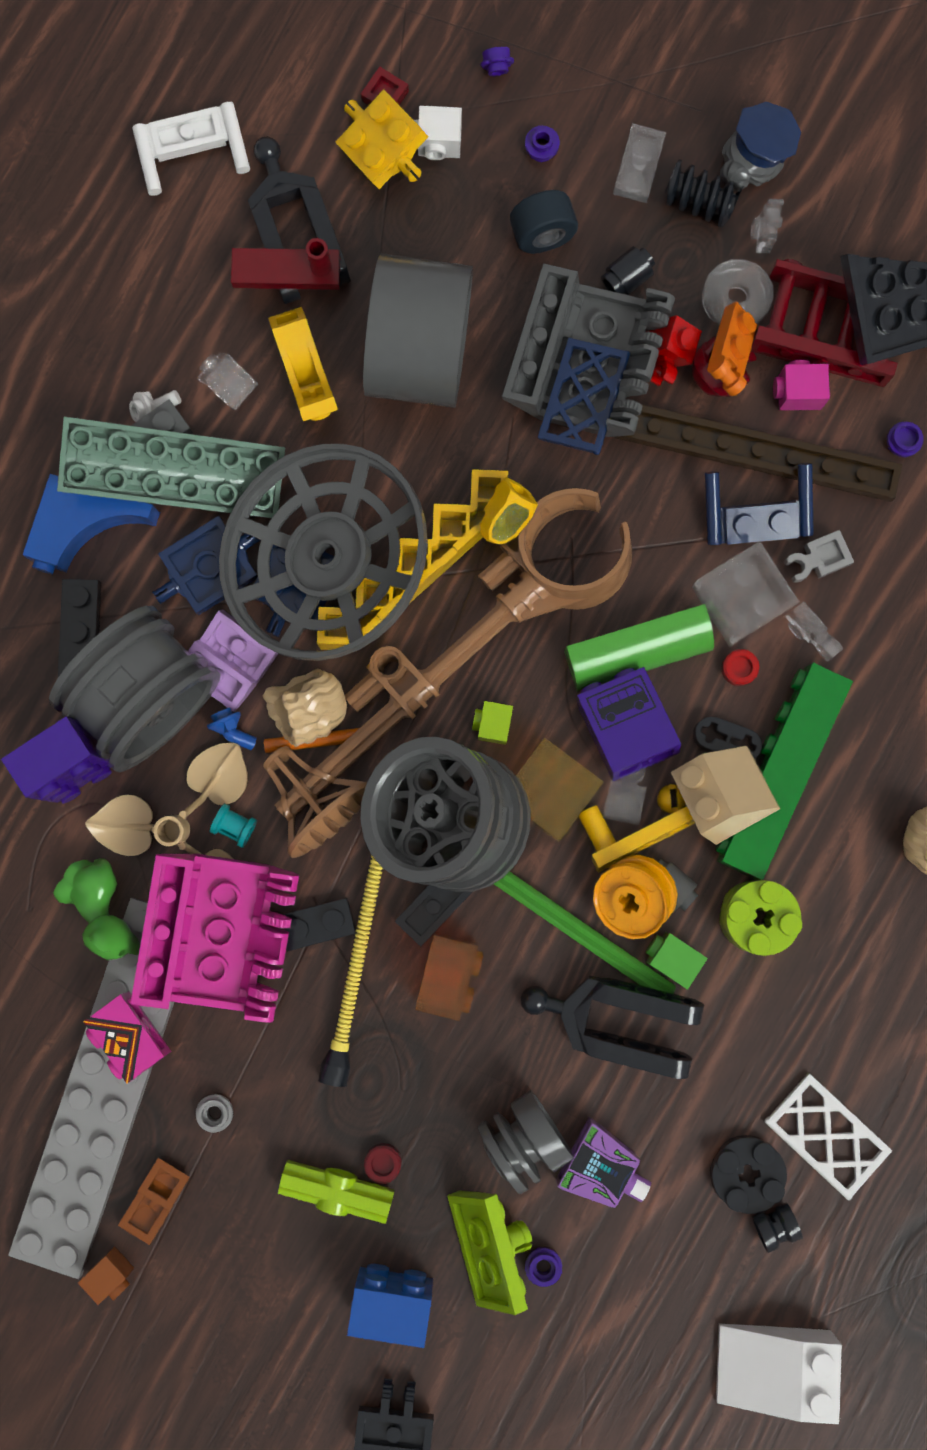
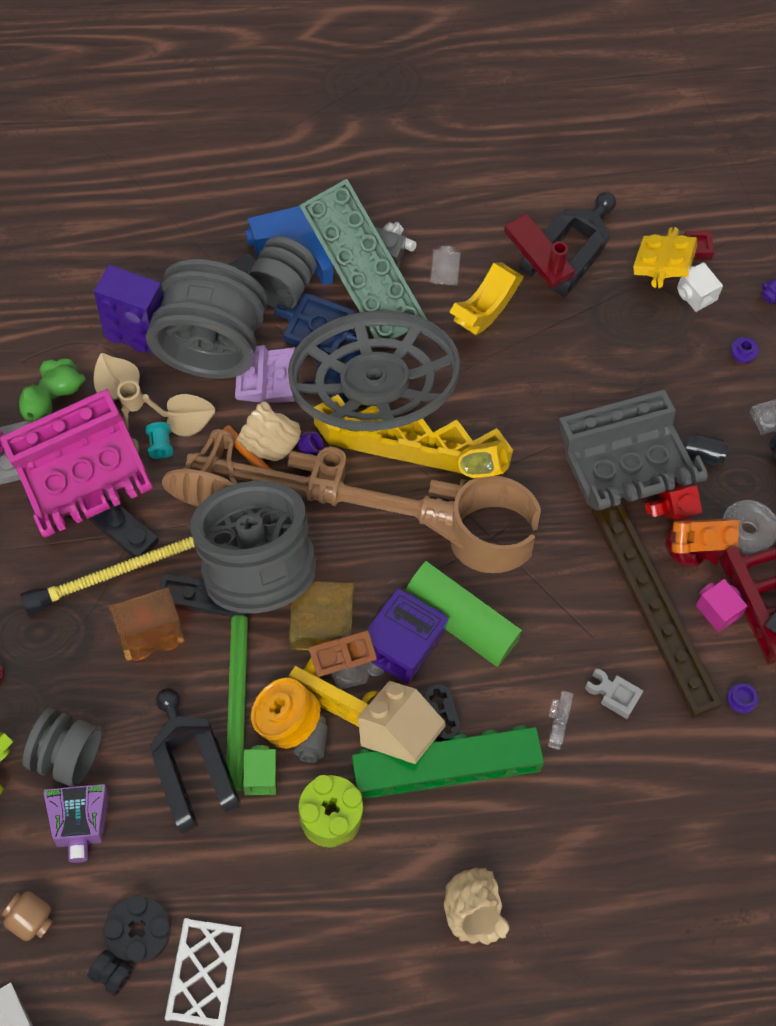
camera: 50 degrees right, 20 degrees down
(120, 564) = (283, 271): none -> dark grey wheel
(186, 136) = (578, 156): white plate -> none
(225, 724) = (224, 395): blue plate -> none
(347, 670) = (310, 443): none -> dark purple plate
(417, 330) = (557, 338): dark grey wheel -> none
(493, 722) = (342, 553): lime plate -> none
(543, 221) = (693, 377): black wheel -> none
(566, 373) = (607, 451): dark blue window -> none
(611, 803) = (342, 653): none -> dark orange slope
(670, 1275) = (27, 916): none -> medium nougat head
(740, 667) = (499, 691): red tile -> none
(745, 593) = (548, 653): clear piece -> none
(761, 520) = (609, 637): plate -> none

